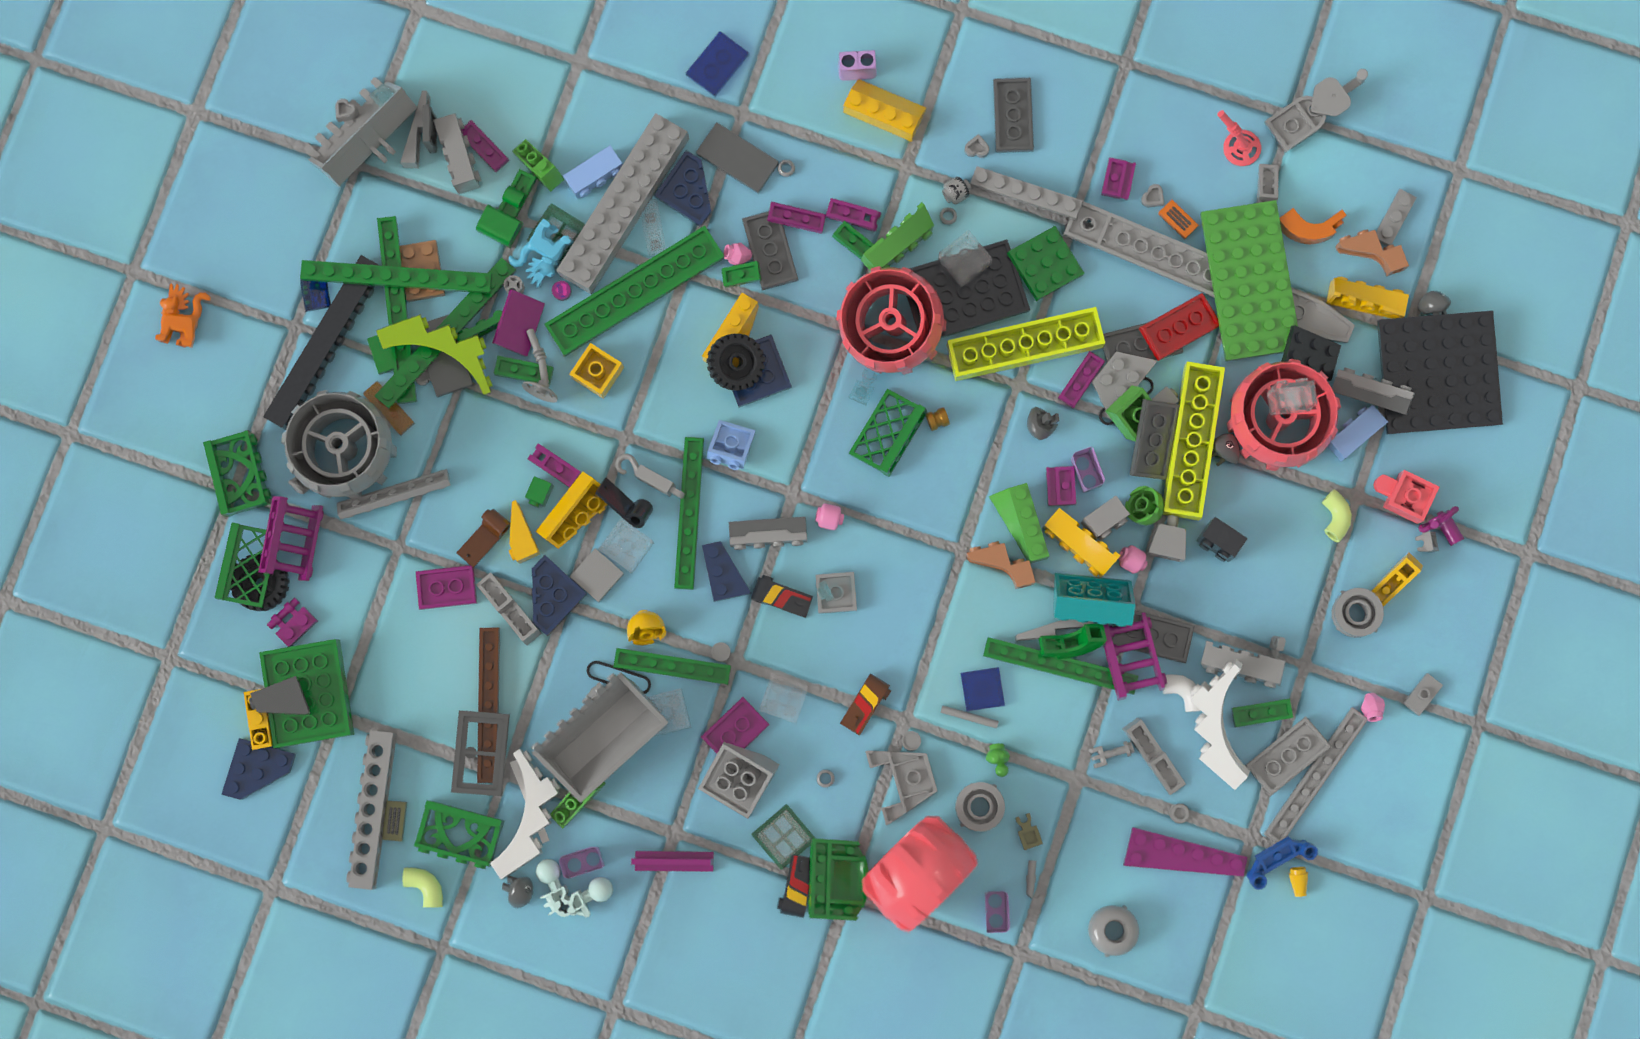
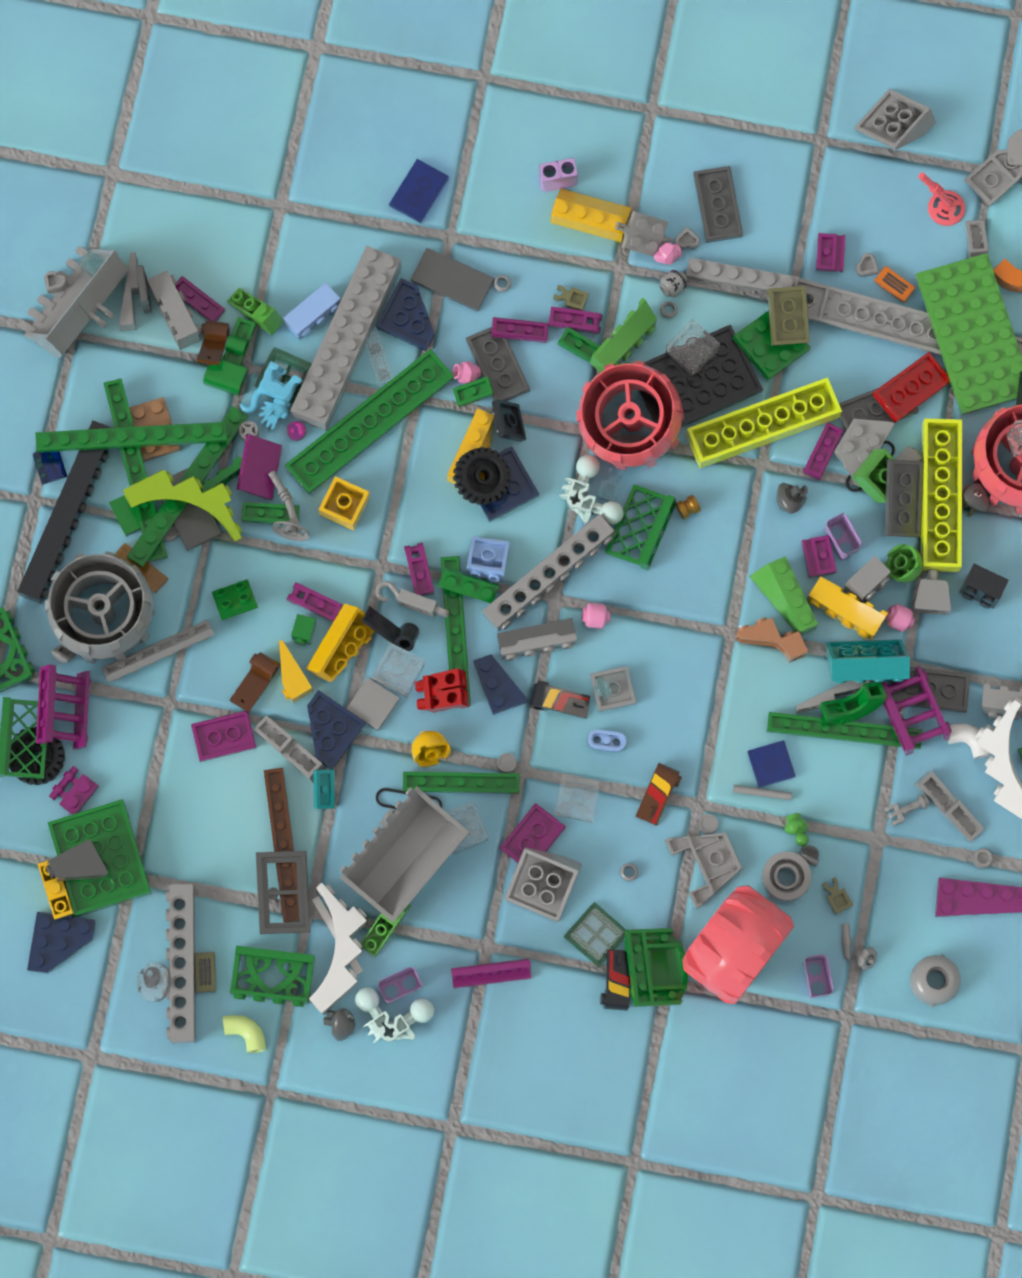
camera: 15 degrees left, 5 degrees down
(342, 824) = (154, 982): none -> clear tile
(475, 453) = (234, 599): none -> green plate
(491, 194) = (214, 342): none -> reddish brown door
(536, 654) = (324, 789): none -> teal plate
(661, 447) = (419, 570): none -> magenta plate
(667, 573) = (443, 691): none -> red hips
(707, 469) = (468, 585): none -> green plate
(771, 308) = (508, 420): none -> black plate
(793, 457) = (566, 550): none -> light grey brick
(822, 644) = (607, 739): none -> light blue plate
(843, 366) = (588, 467): none -> light aqua piece
(854, 193) = (574, 298): none -> olive plate
(934, 136) = (644, 233): none -> light grey plate
(955, 159) = (668, 253): none -> bright pink rock
(1007, 787) = (810, 854): none -> flat silver plate
(1048, 898) = (866, 958): none -> light grey piece
(1065, 238) = (788, 315): none -> olive plate
(1204, 52) = (896, 120): none -> light grey slope

